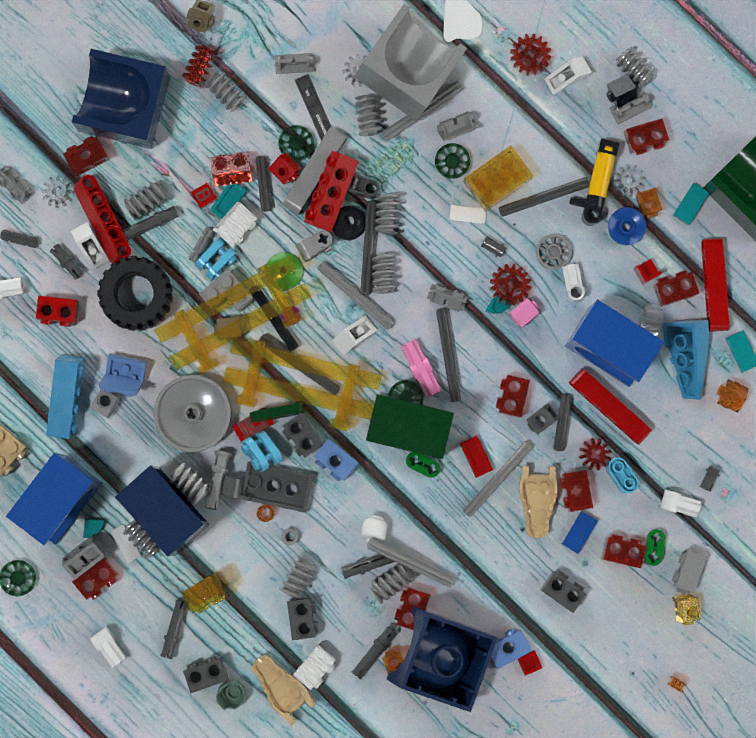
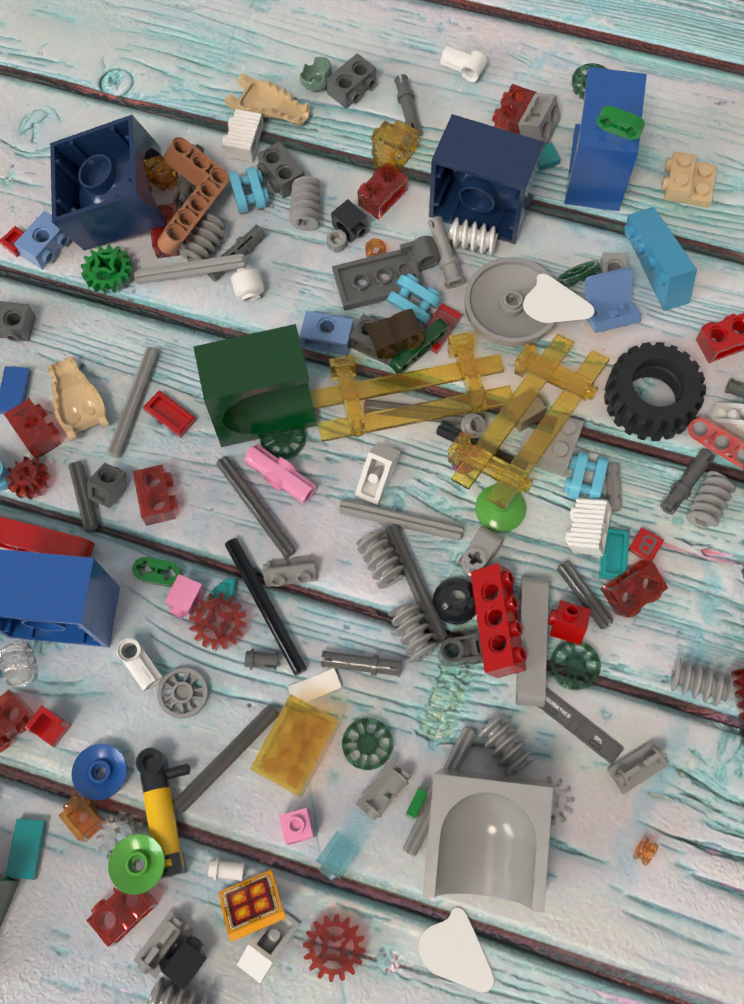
camera: 160 degrees right, 15 degrees down
(54, 478) = (620, 122): none -> green beam
(132, 411) = (579, 272): none -> clear green wheel
(164, 394) = (555, 303): none -> white sticker
(233, 556) = (385, 193): none -> clear red brick
(272, 333) = (477, 422): none -> light grey plate
(272, 545) = (349, 220): none -> black brick
(292, 422) = (395, 334): none -> dark brown brick
(319, 14) = (645, 851): none -> clear orange bush
(326, 621) = (253, 179): none -> medium azure brick
(380, 618) = (208, 179): none -> nougat beam
(431, 212) = (361, 663): none -> dark grey pin
(441, 109) = (416, 804): none -> green tile
(462, 600) = (107, 269): none -> green gear
(474, 282) = (266, 607): none -> black axle
(503, 100) = (338, 857): none -> clear light blue brick
(520, 132) = (297, 826): none -> bright pink brick
(538, 338) = (158, 566): none -> green beam
(568, 100) = (251, 905): none -> tile
(574, 129) = (226, 870): none -> white pin
(635, 154) = (123, 864): none -> bright green dish

